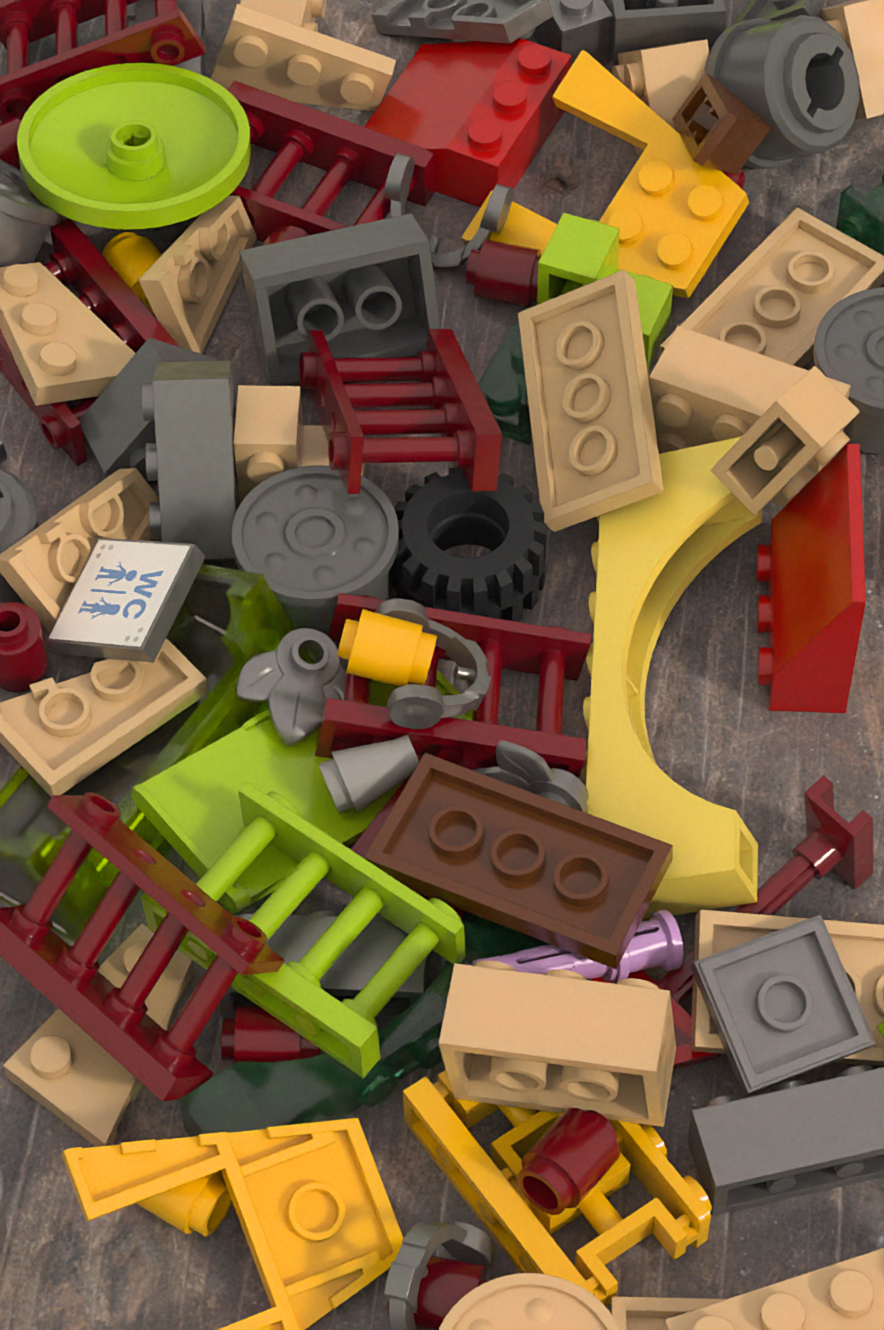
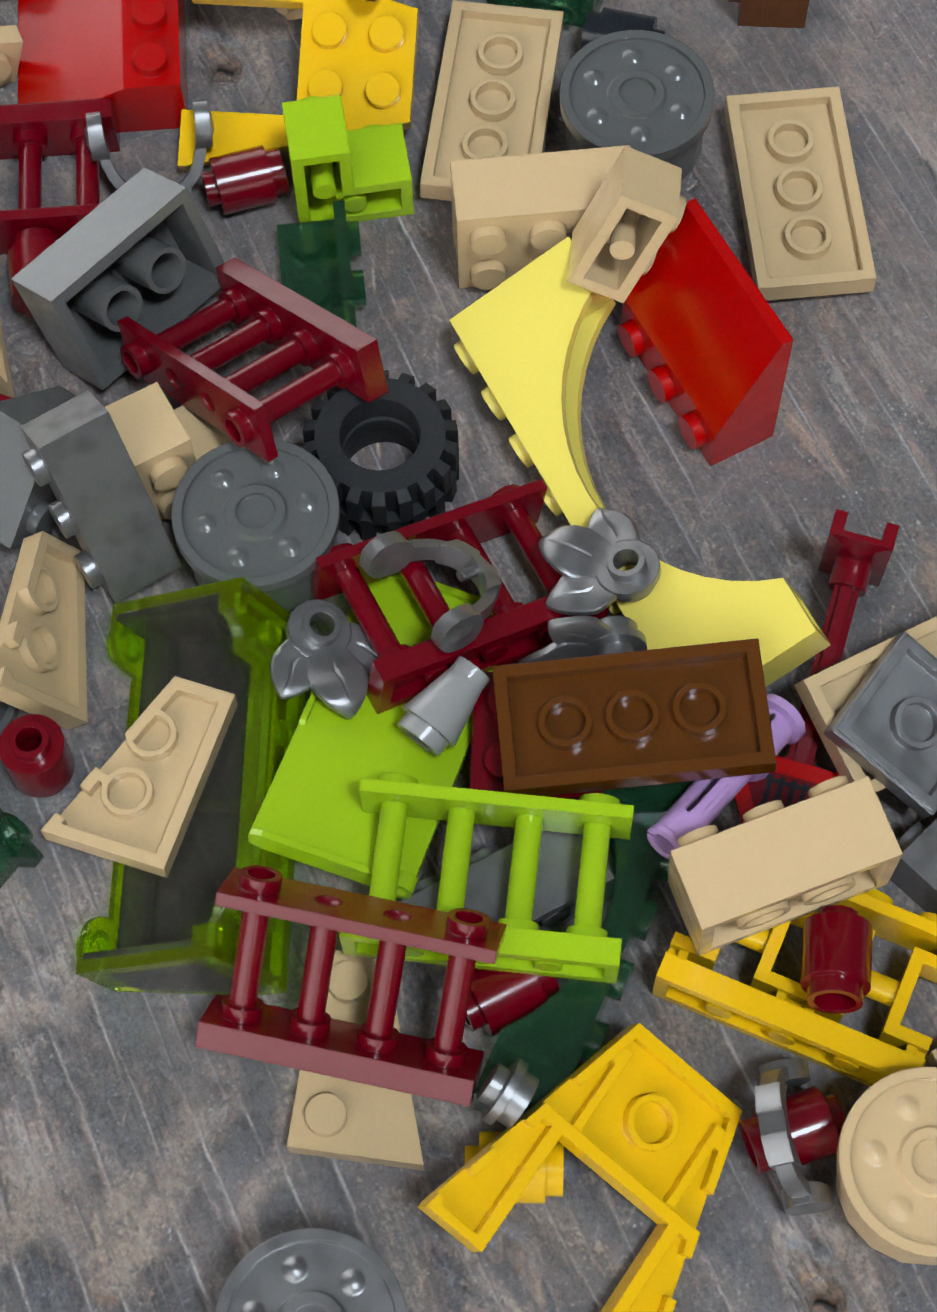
camera: 30 degrees left, 10 degrees up
(125, 599) = (118, 660): tile -> none
(200, 1106) = (507, 1093): none -> flat silver plate
(387, 649) = (395, 588): yellow brick -> none
(586, 724) = (592, 562): none -> flat silver plate
(590, 402) = (413, 267): tan plate -> none

